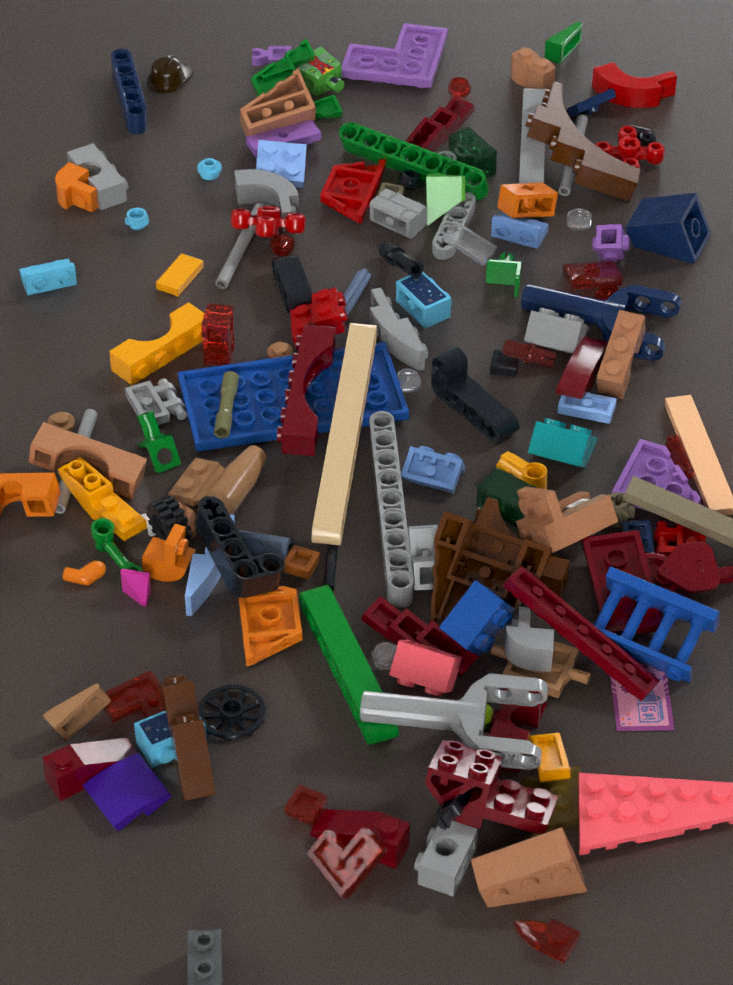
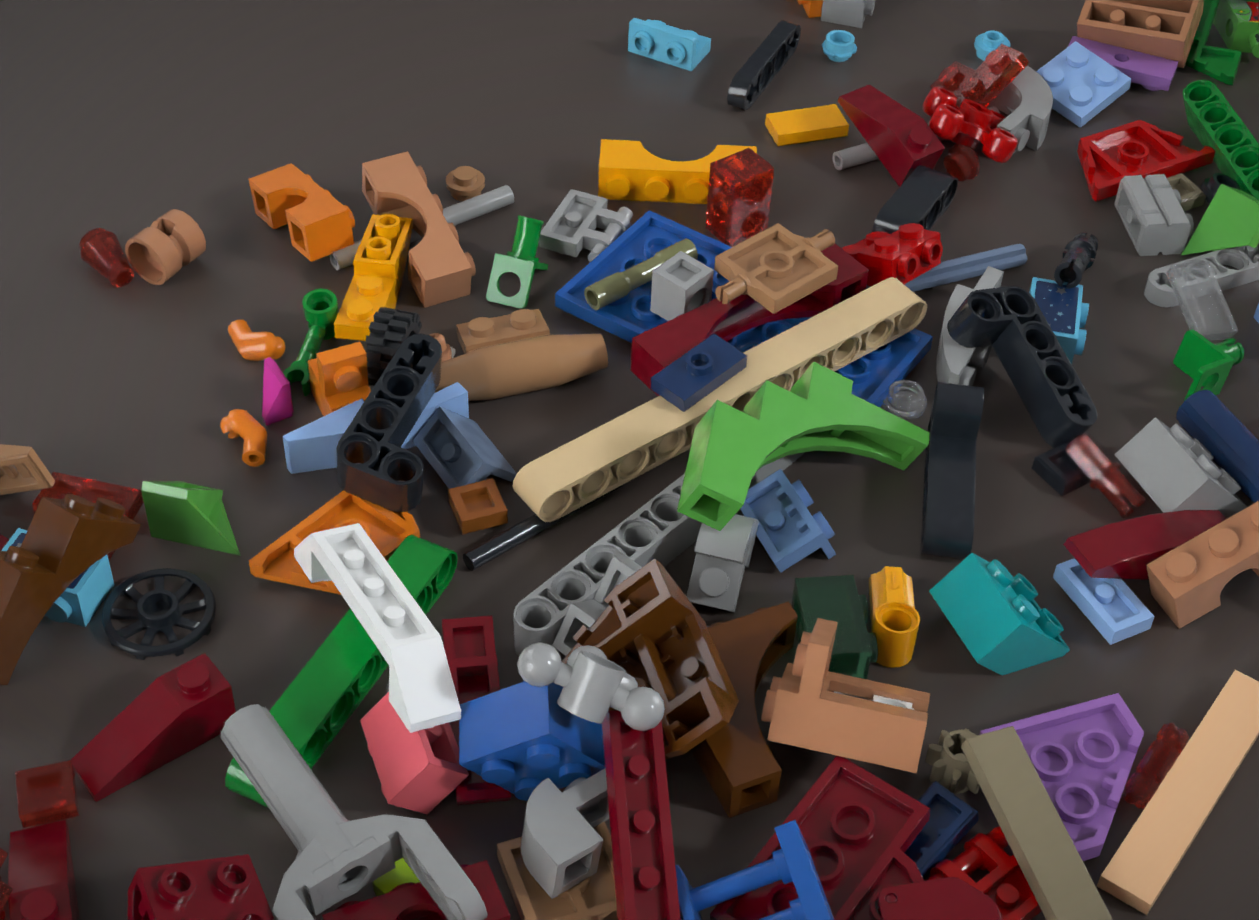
camera: 45 degrees right, 0 degrees up
(117, 255) = (763, 65): none -> black beam
(152, 611) = (243, 424): none -> orange arm
(185, 661) = (188, 515): none -> bright green slope
(238, 249) = (892, 131): none -> dark red slope
(245, 196) = (987, 80): none -> clear red plate
(266, 396) = (680, 286): none -> light grey brick
(303, 354) = (776, 267): none -> medium nougat plate
(311, 744) = (157, 727): none -> dark red slope
(332, 427) = (698, 372): none -> dark blue plate
(399, 437) = (777, 423): none -> bright green arch
(422, 629) = (418, 666): none -> white slope
(432, 496) = (721, 563): none -> light grey brick
(447, 322) = (1031, 356): none -> black beam
(492, 572) = (591, 685): none -> light grey piece

